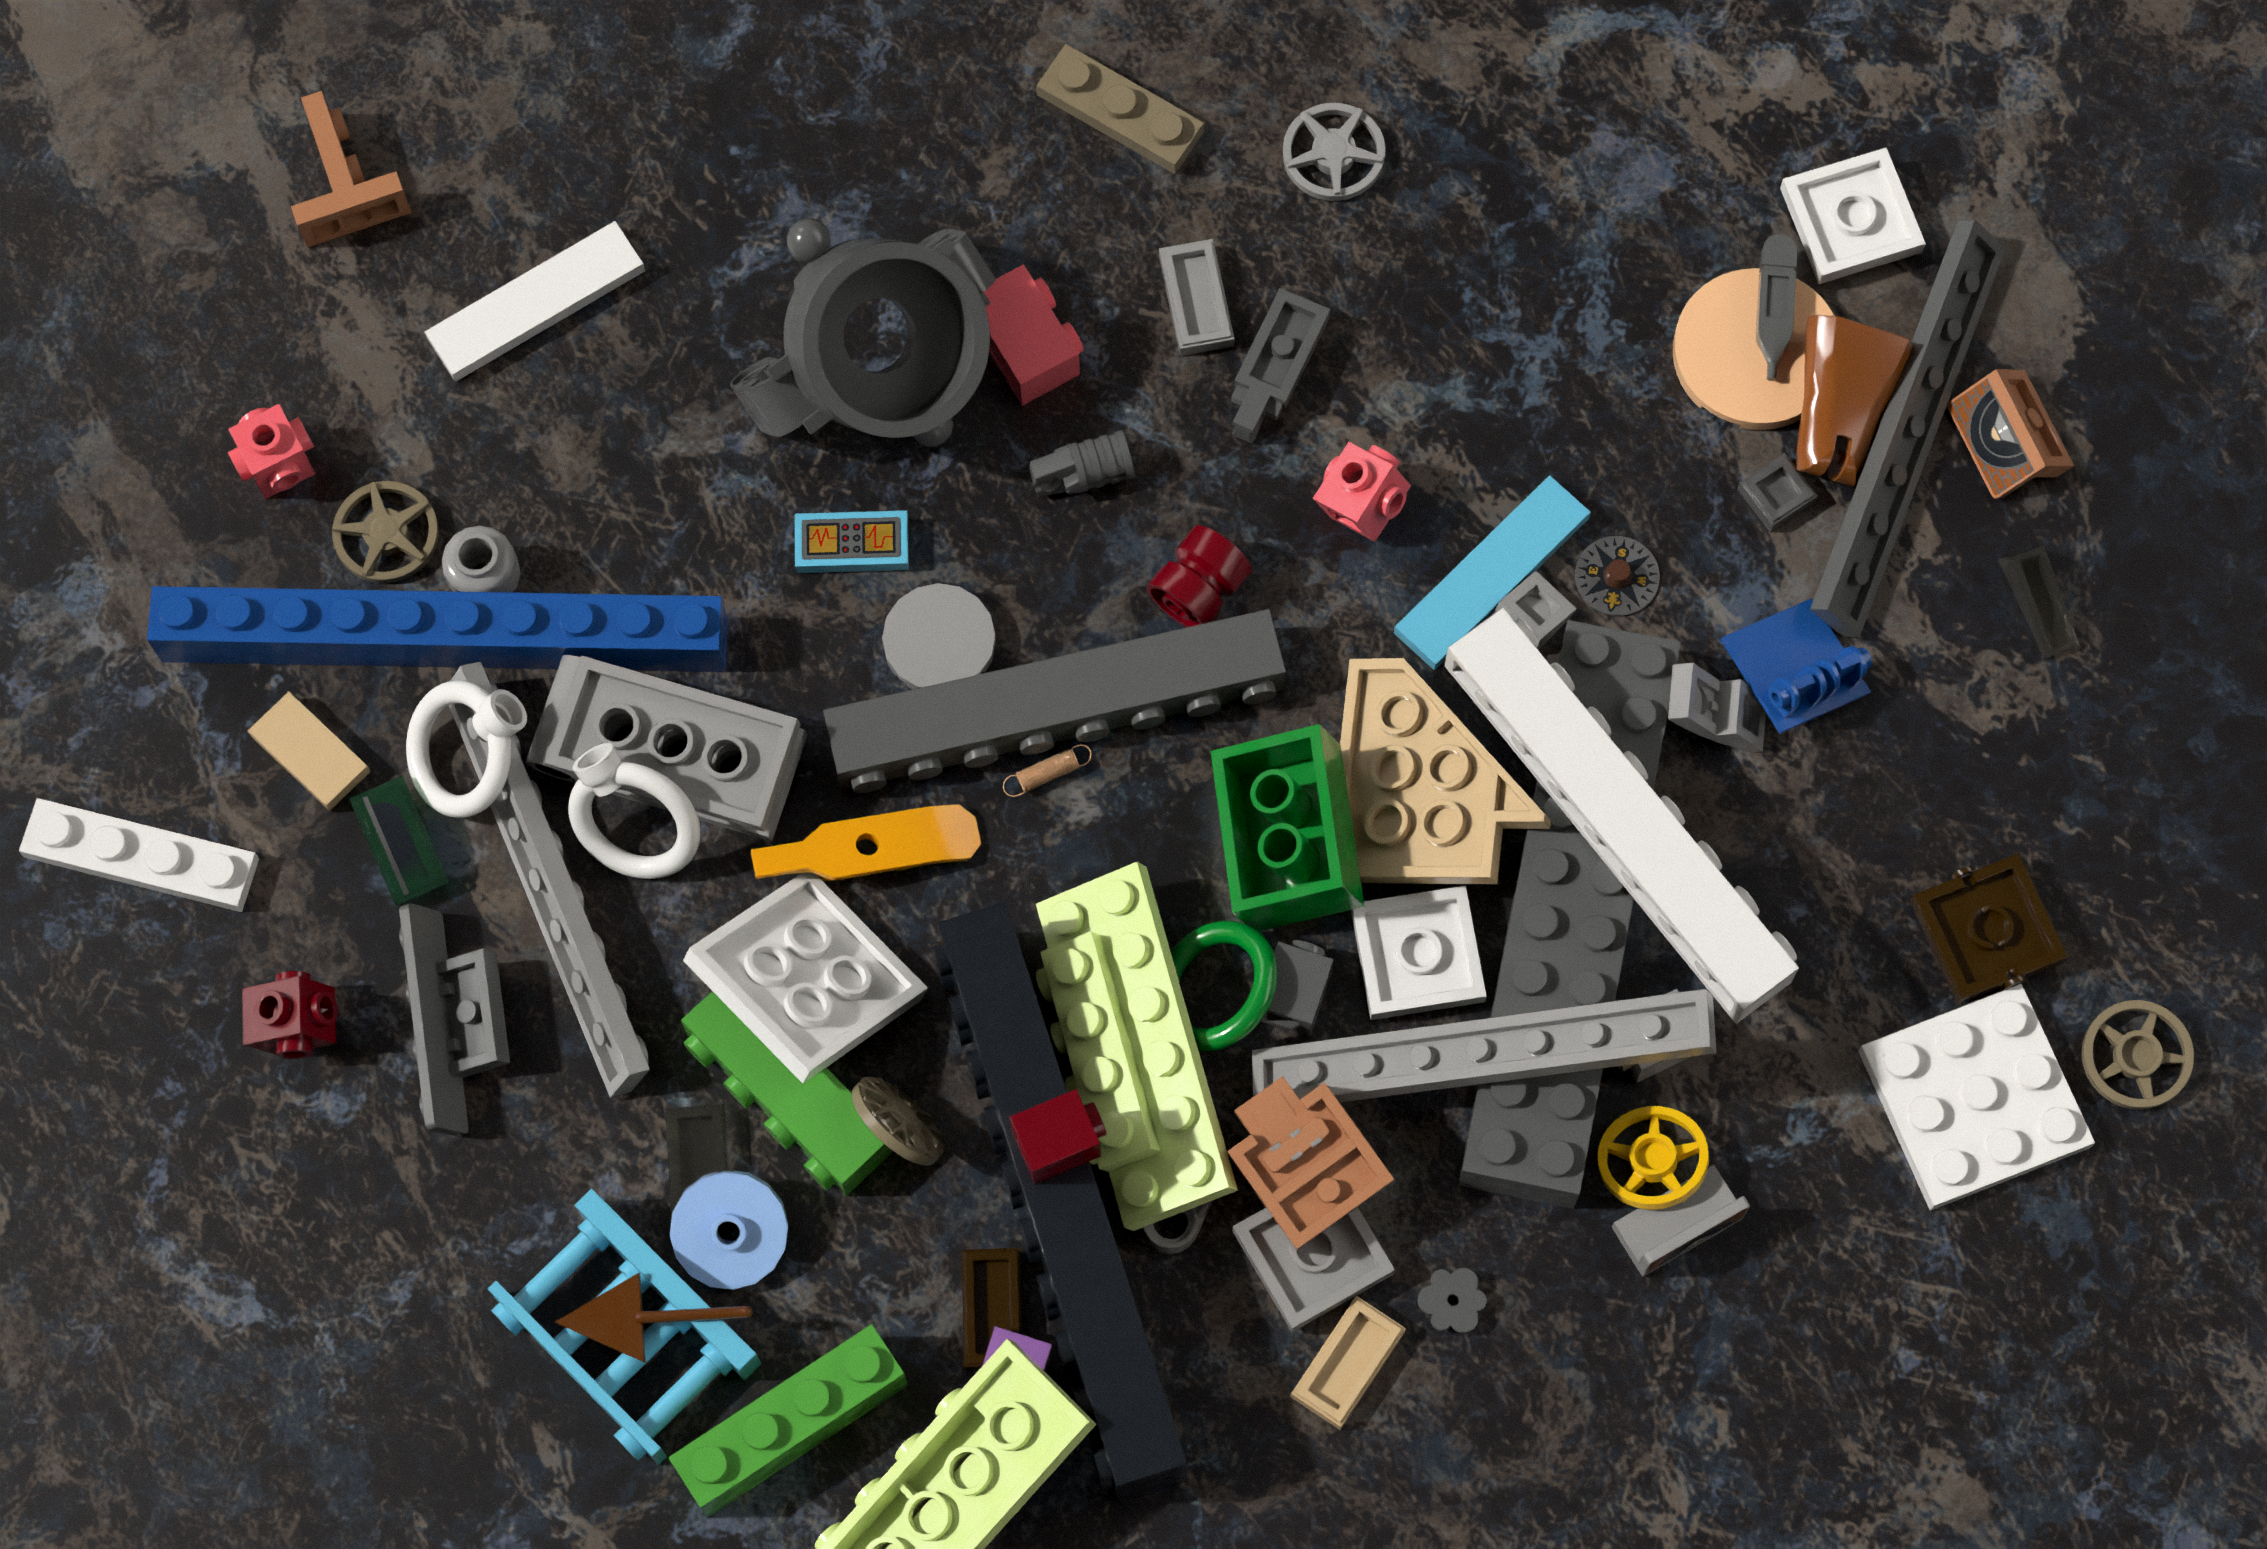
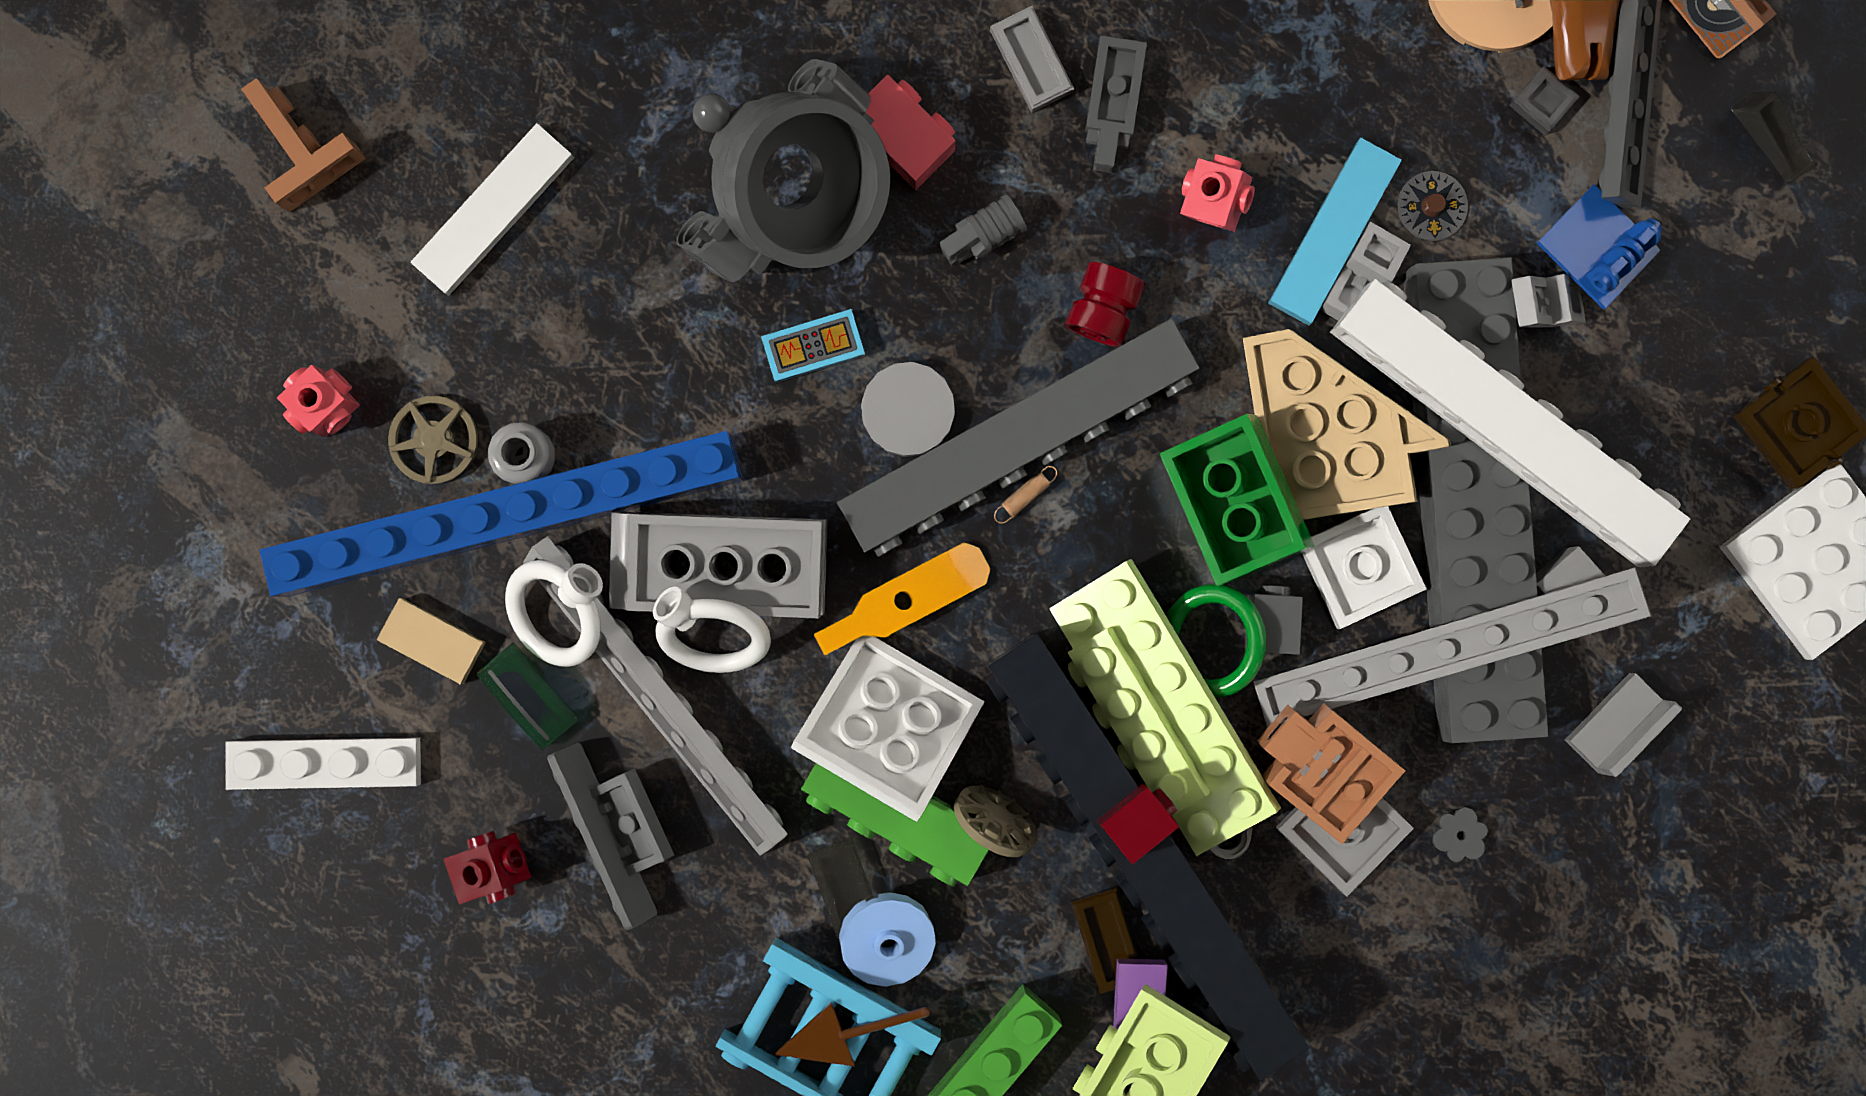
camera: 20 degrees left, 15 degrees up
(1348, 1362) = (1392, 906): tan tile -> none
(1653, 1158) = (1588, 681): yellow wheel -> none

